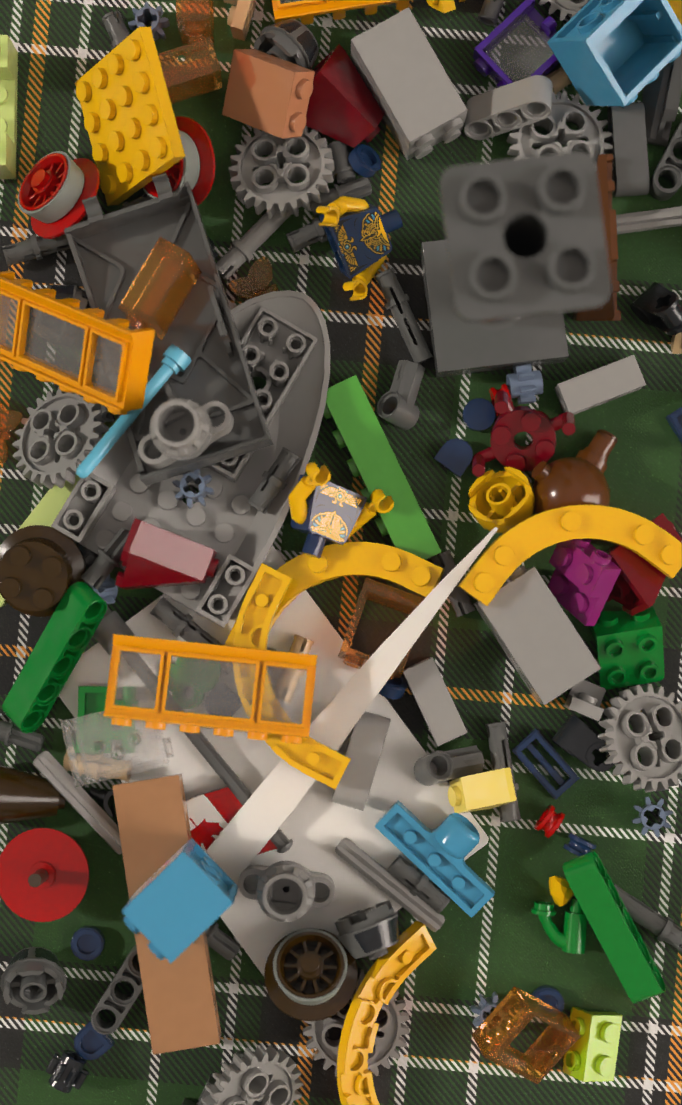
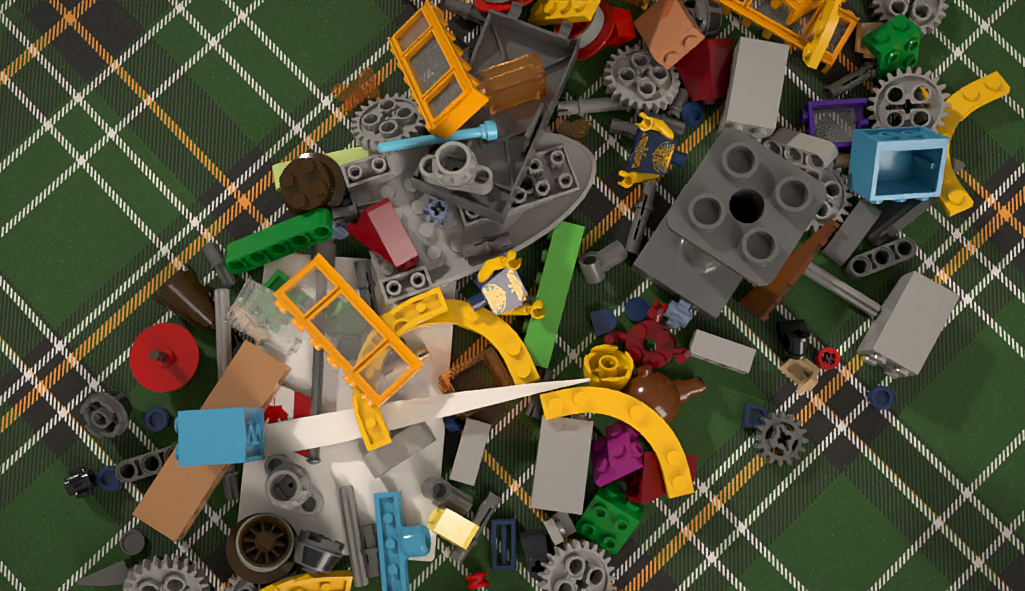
camera: 45 degrees right, 5 degrees down
(172, 1083) = (132, 542): none -> dark grey piece
(217, 127) = (623, 28): none -> red brick

